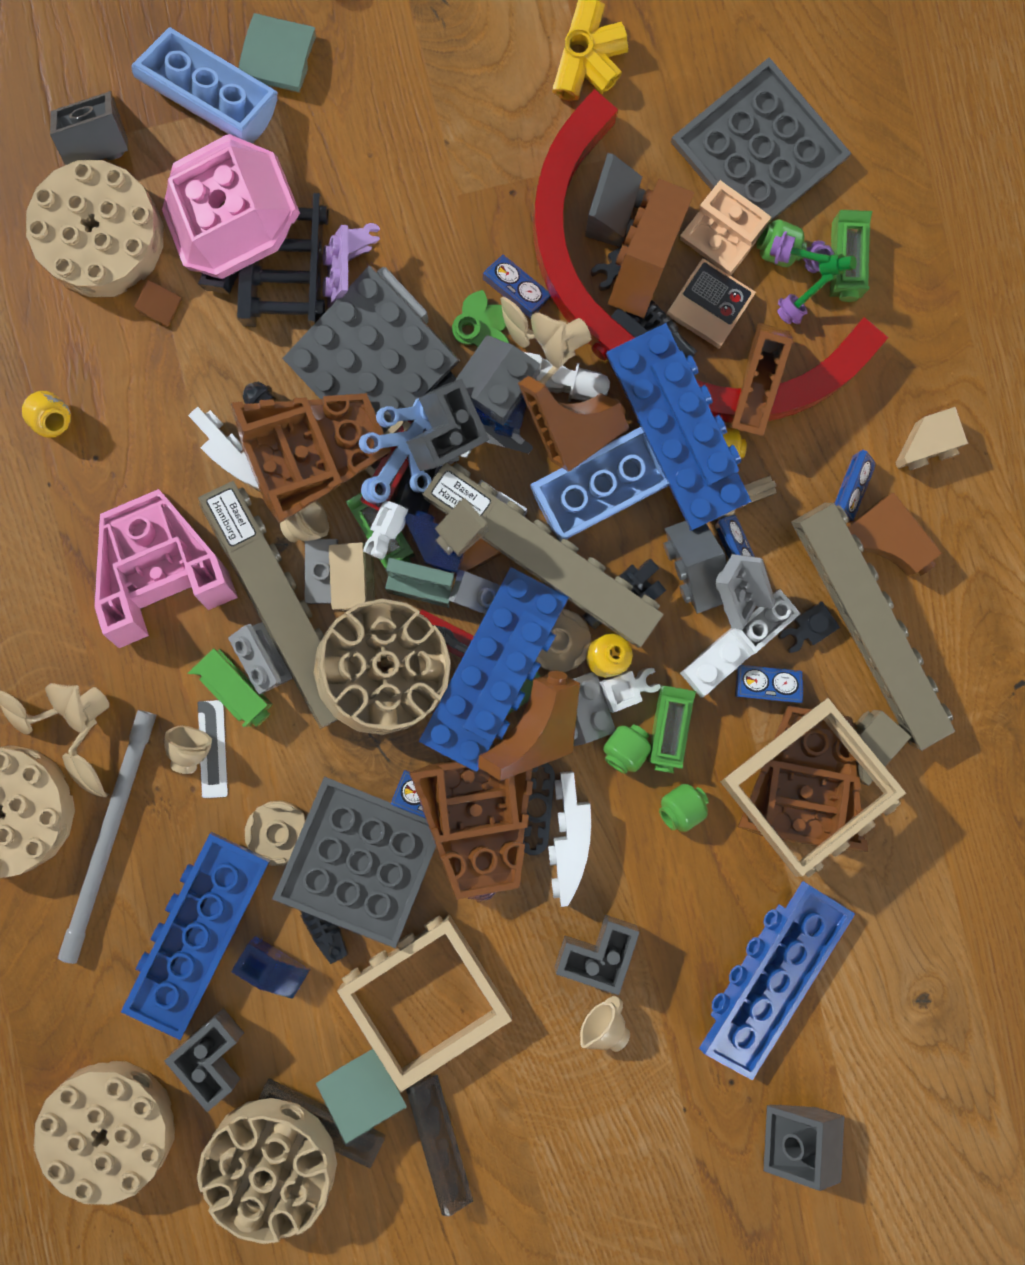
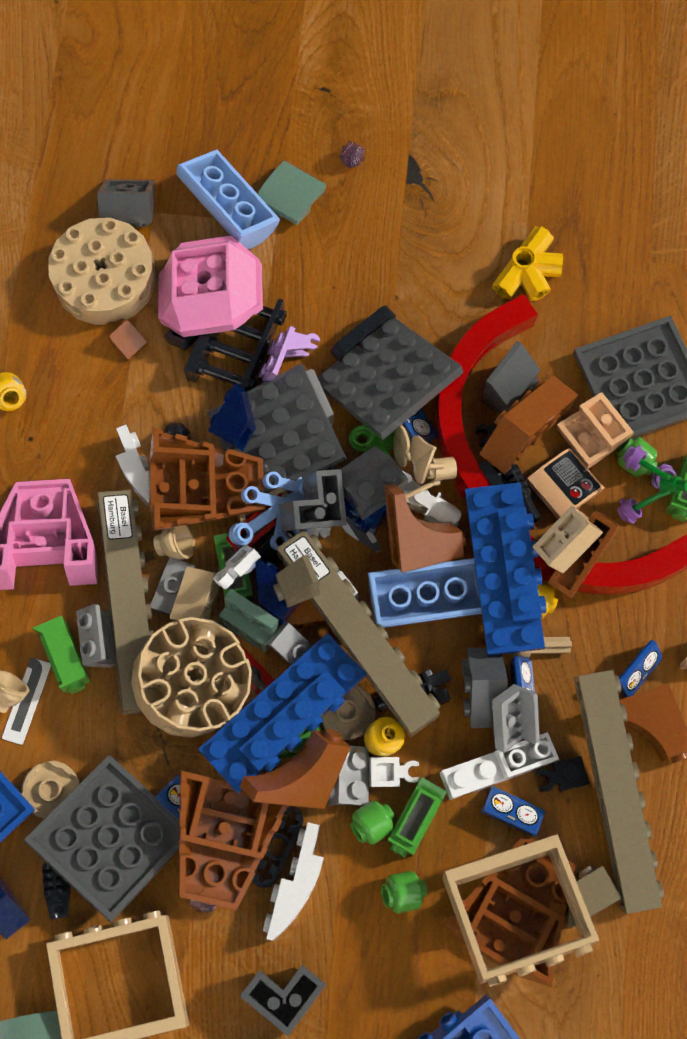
camera: 20 degrees right, 15 degrees down
(318, 359) = (235, 419): none -> clear blue slope
(425, 202) = (361, 332): none -> black beam
(474, 245) = (389, 377): none -> dark grey plate
(741, 374) = (567, 539): none -> tan hinge

